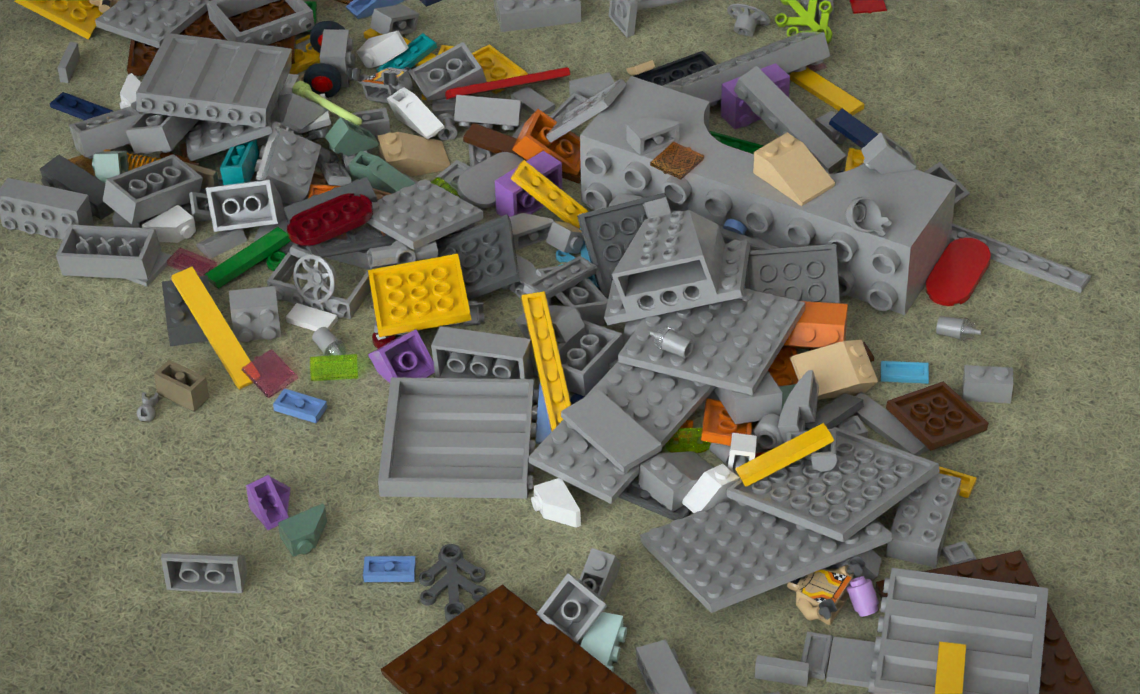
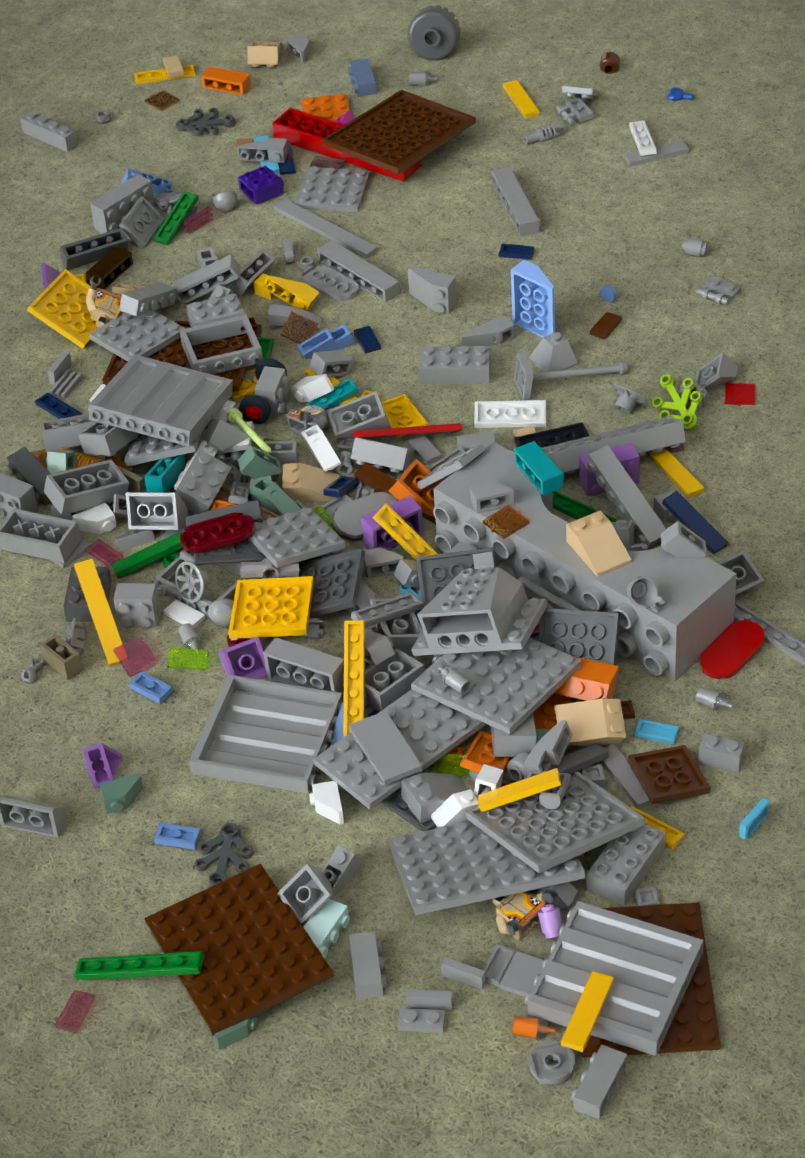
camera: 15 degrees right, 0 degrees up
(75, 91) = (63, 382): none -> light grey tile
(188, 357) = (76, 636): none -> light grey hinge
(359, 309) = (220, 612): none -> light grey piece
(451, 153) = (340, 486): none -> dark blue tile
(617, 51) = (510, 414): none -> white tile
(696, 97) = (538, 468): none -> teal brick
(735, 226) = (545, 584): medium blue tile -> none
(1049, 450) = (754, 819): none -> medium azure tile

